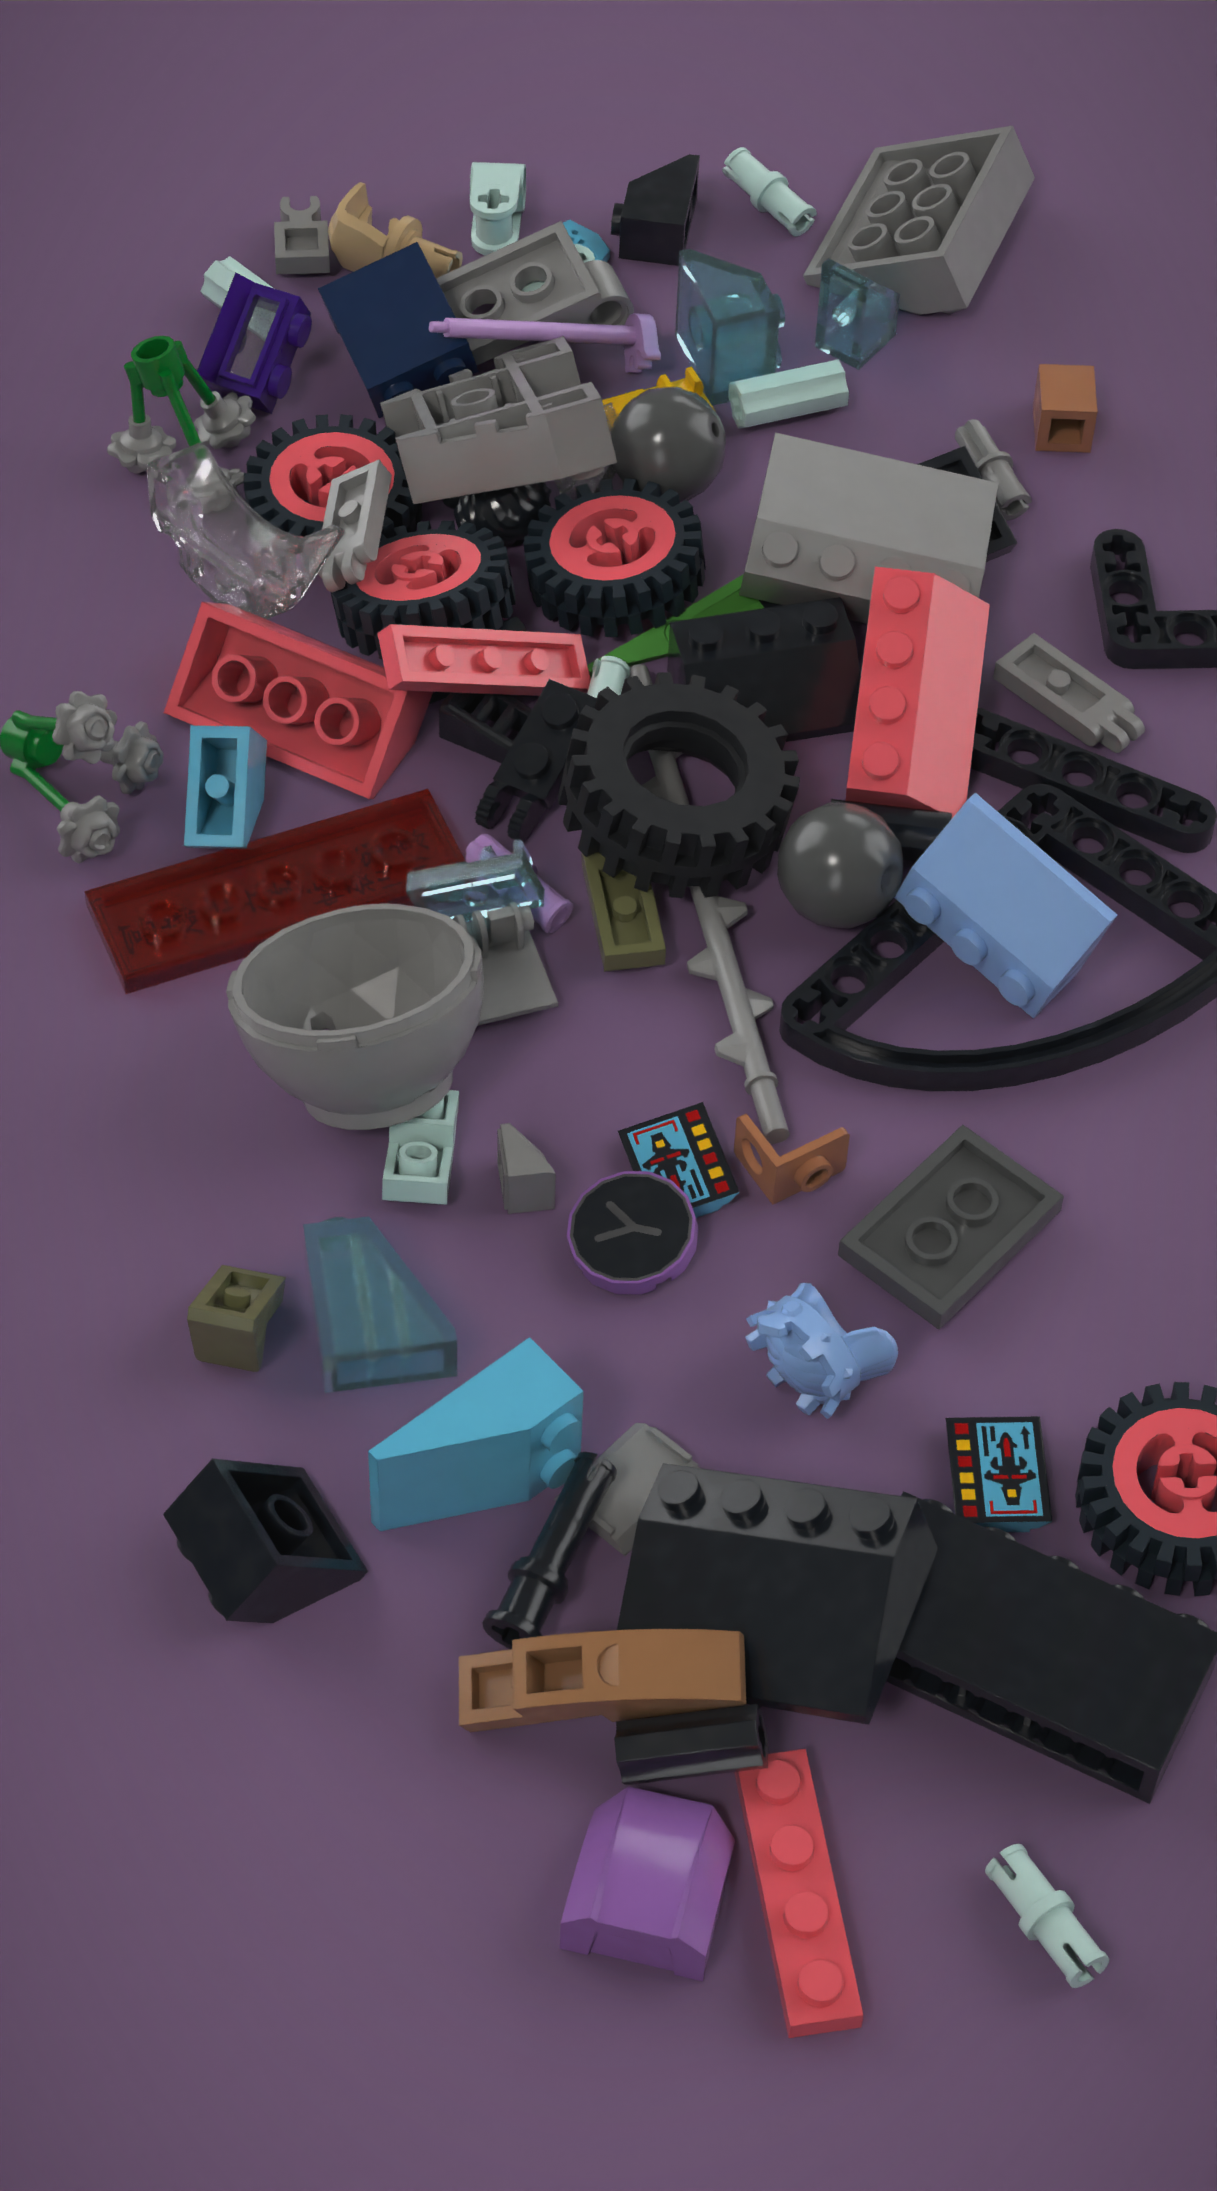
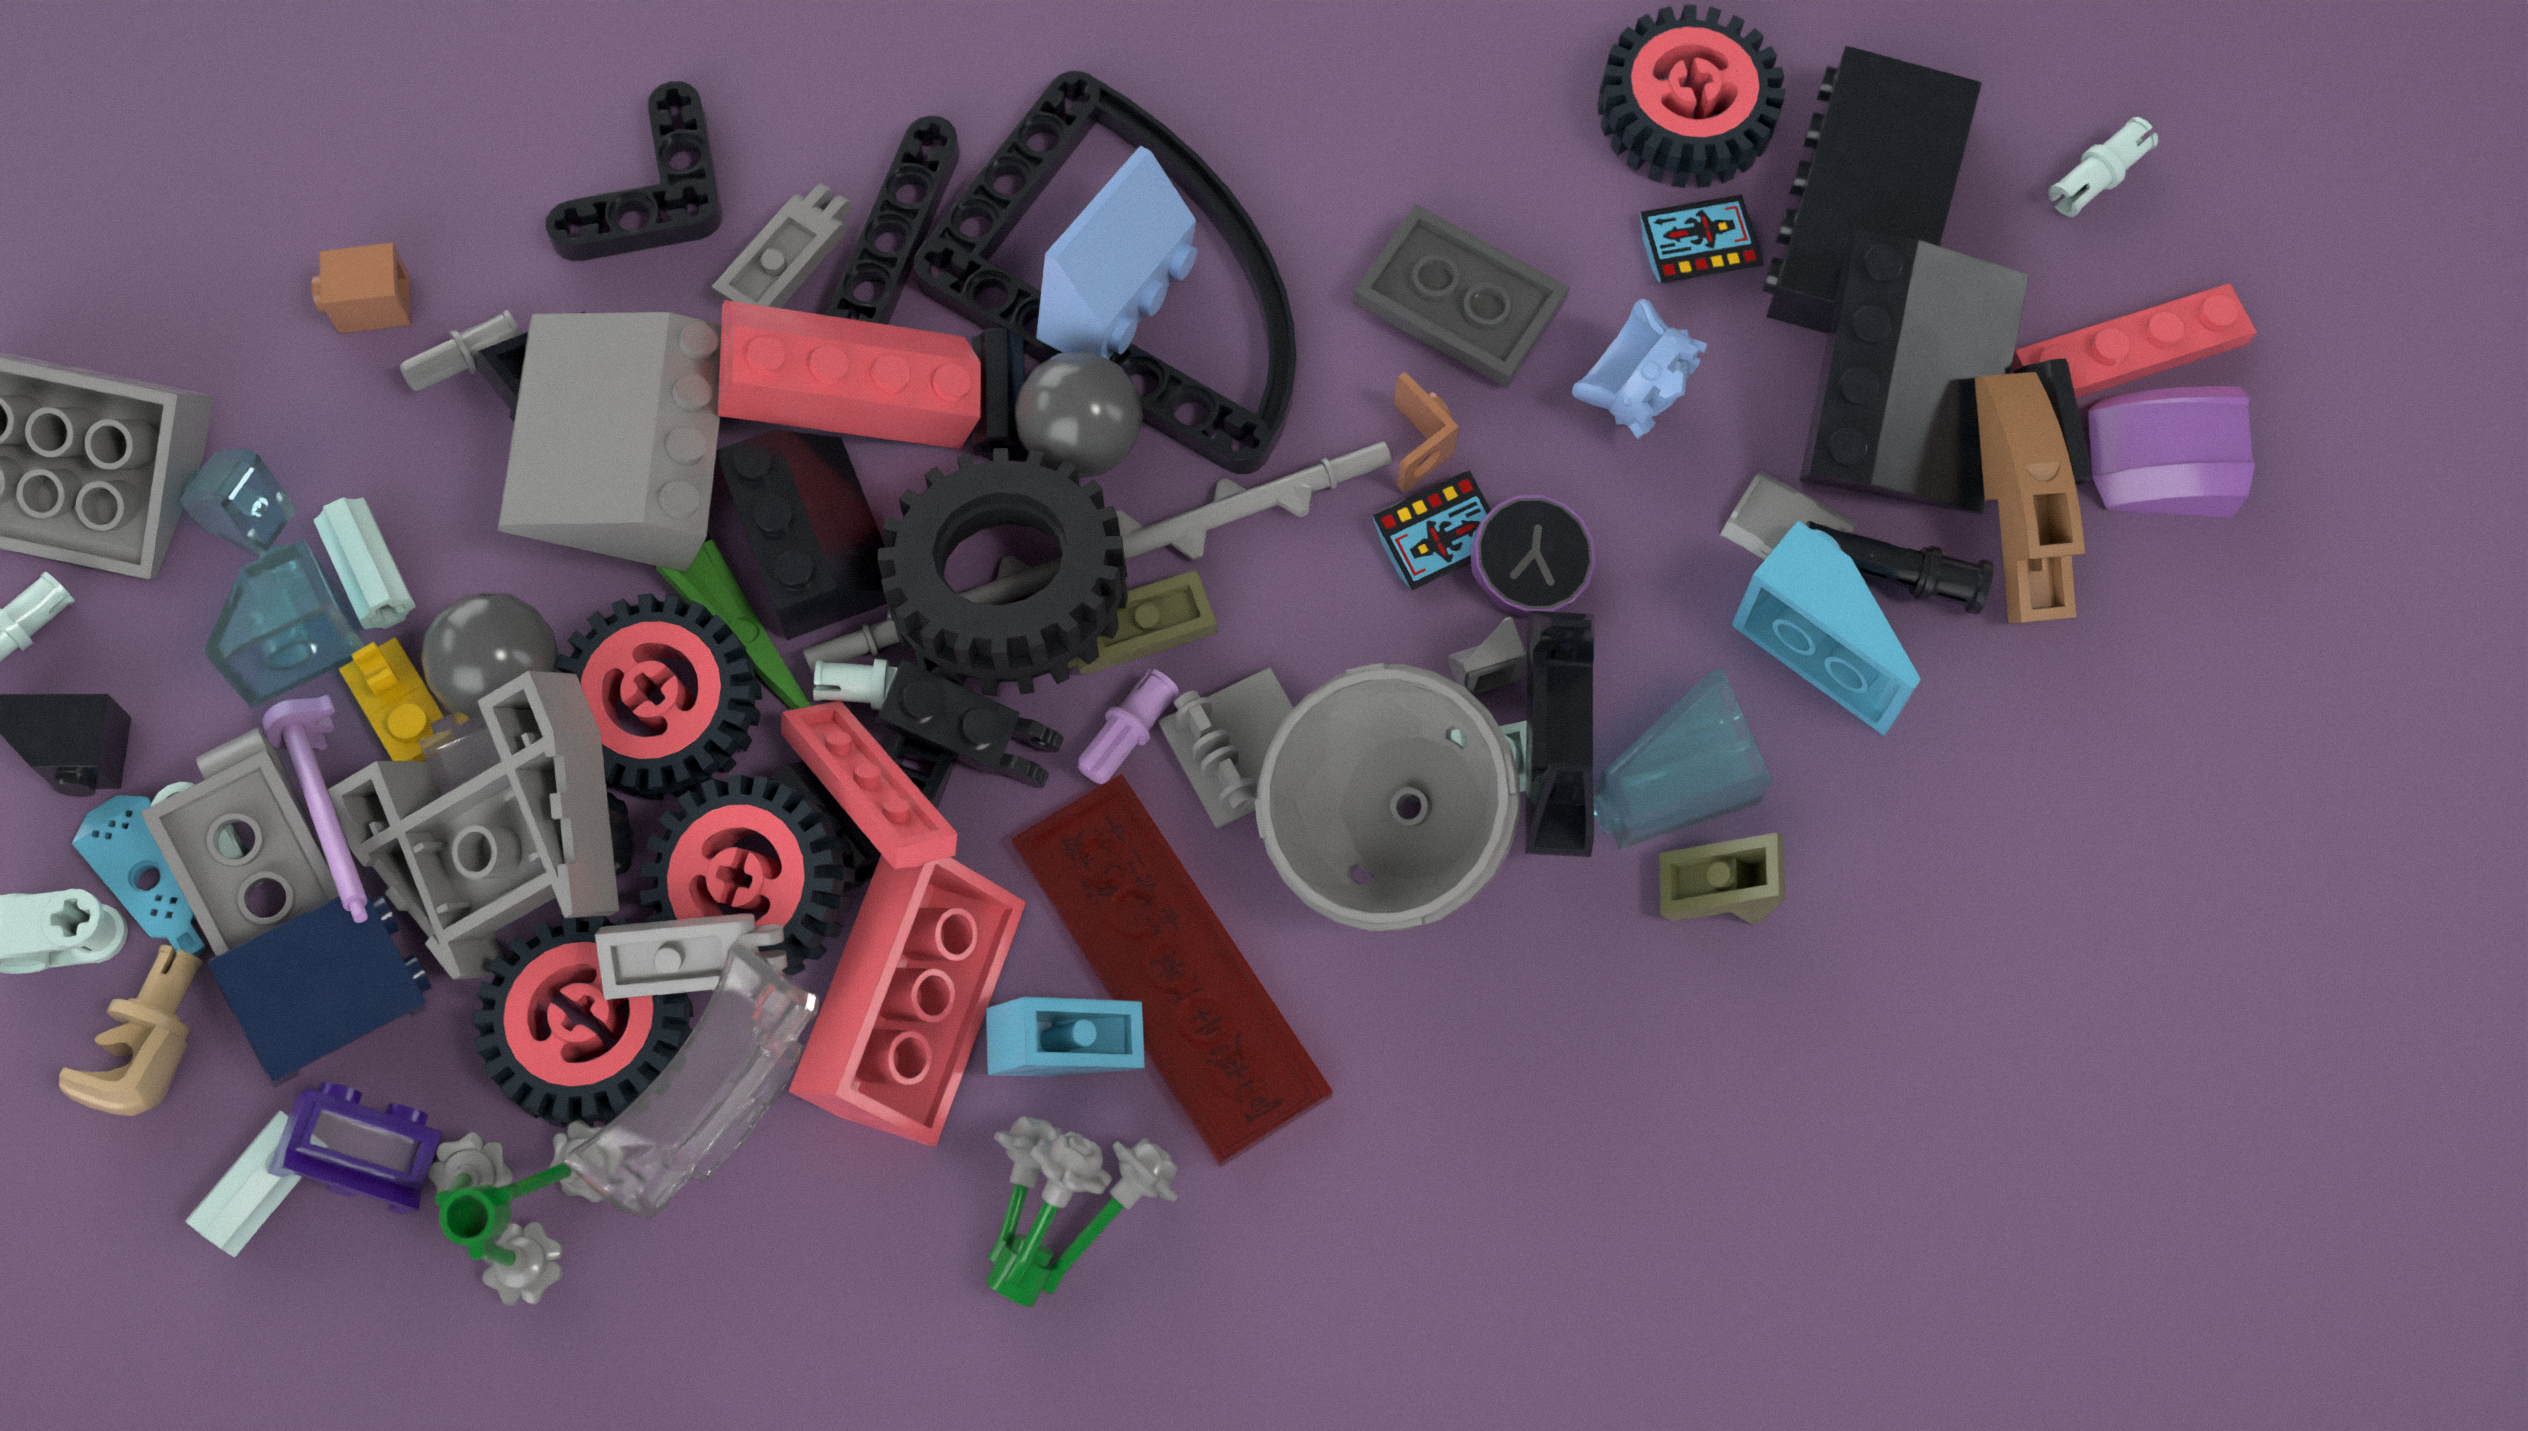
camera: 100 degrees left, 15 degrees up
(261, 1540) = (1956, 807): black slope -> none
(301, 240) = (131, 1154): light grey plate -> none
(421, 1176) = (1559, 734): none -> black hose
(478, 884) = (1165, 779): clear light blue plate -> none

